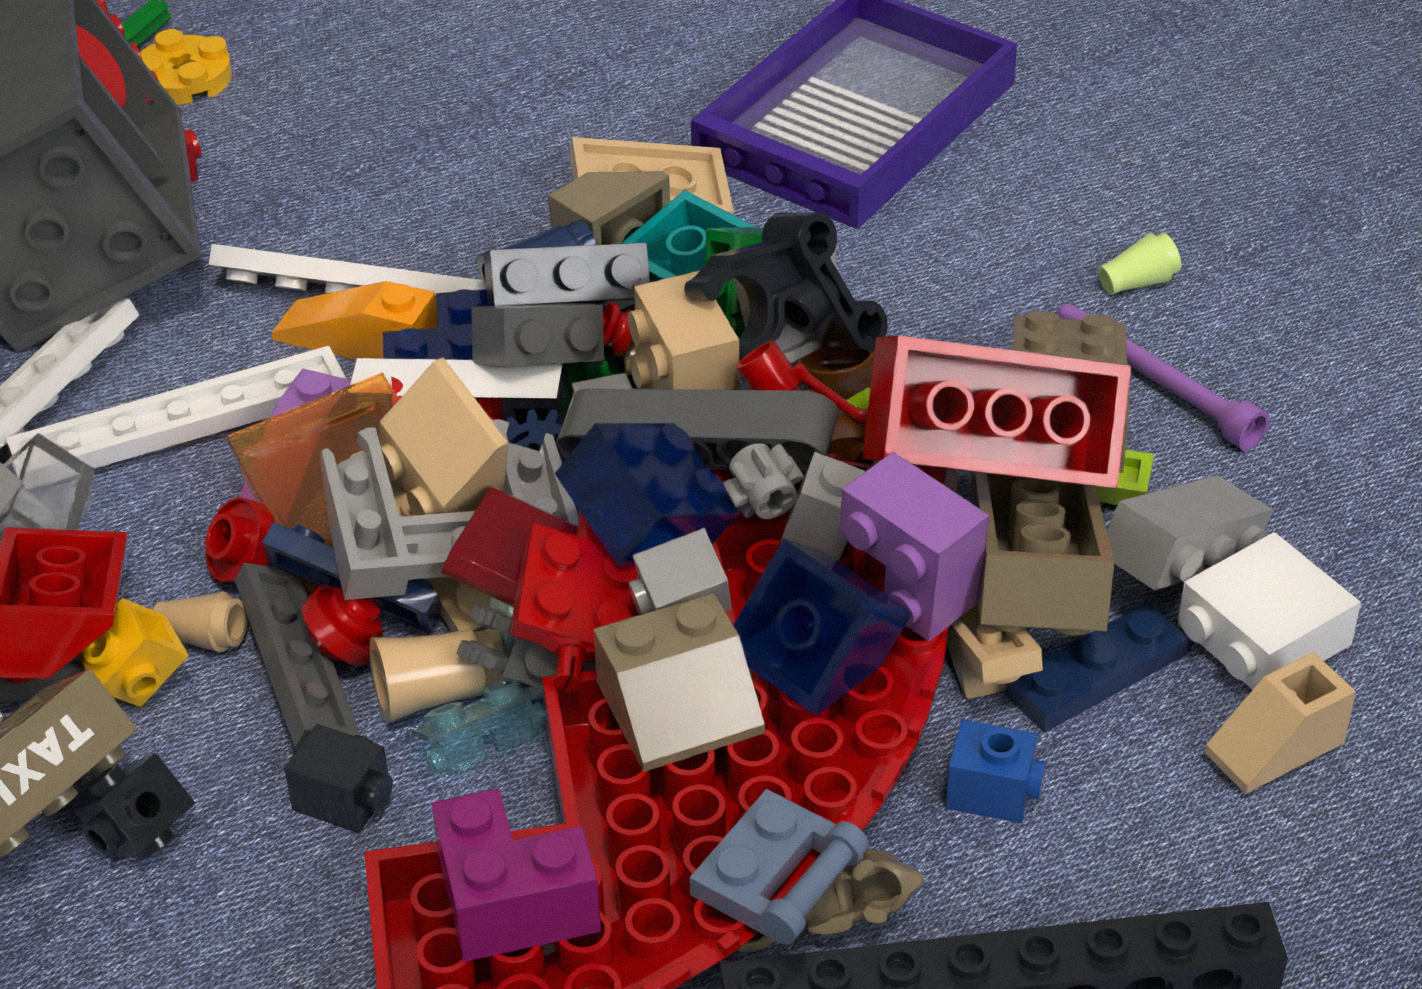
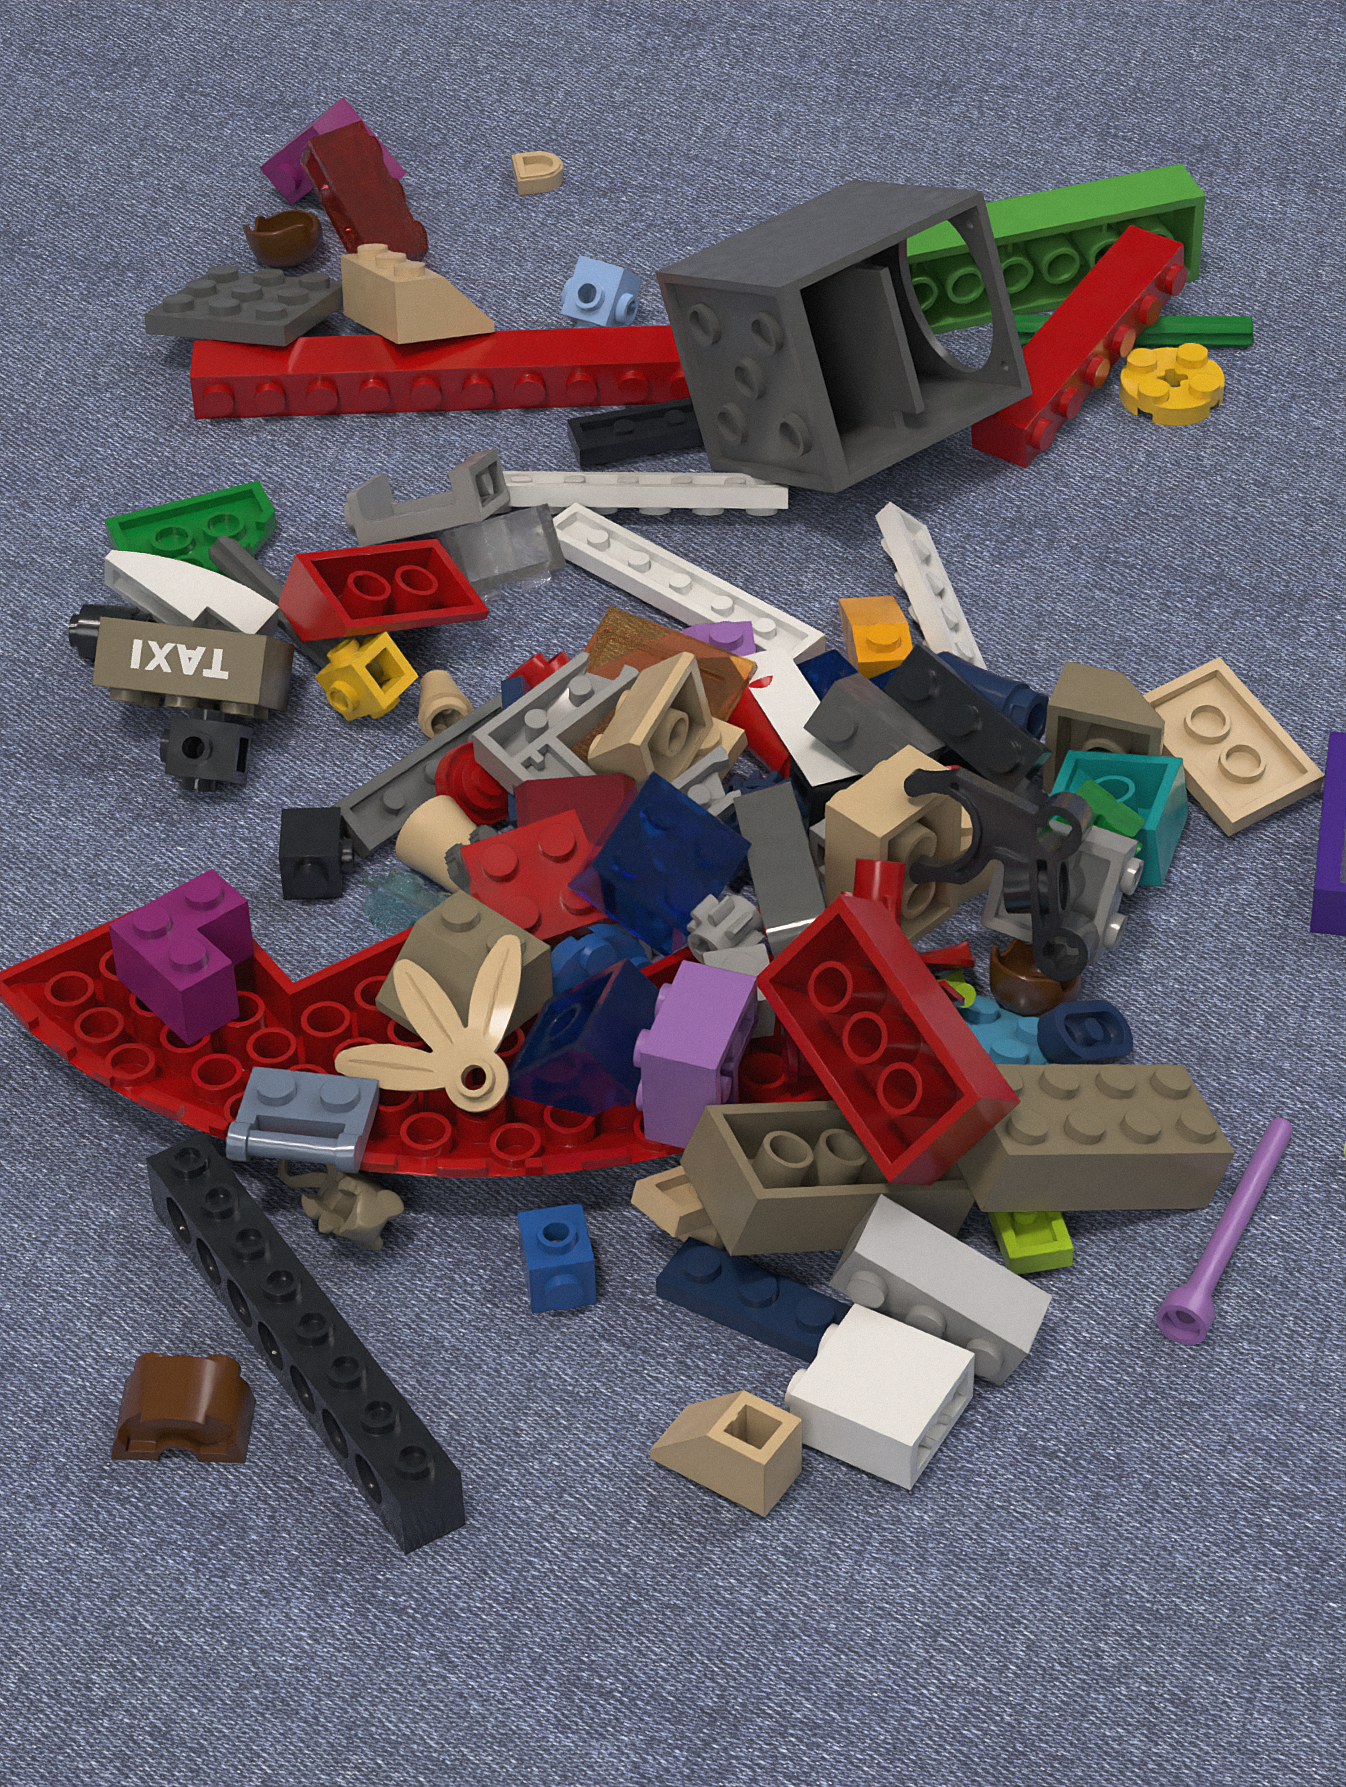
camera: 65 degrees right, 0 degrees up
(678, 573) = (568, 923): light grey brick -> none
(782, 710) = (454, 1047): none -> tan plant

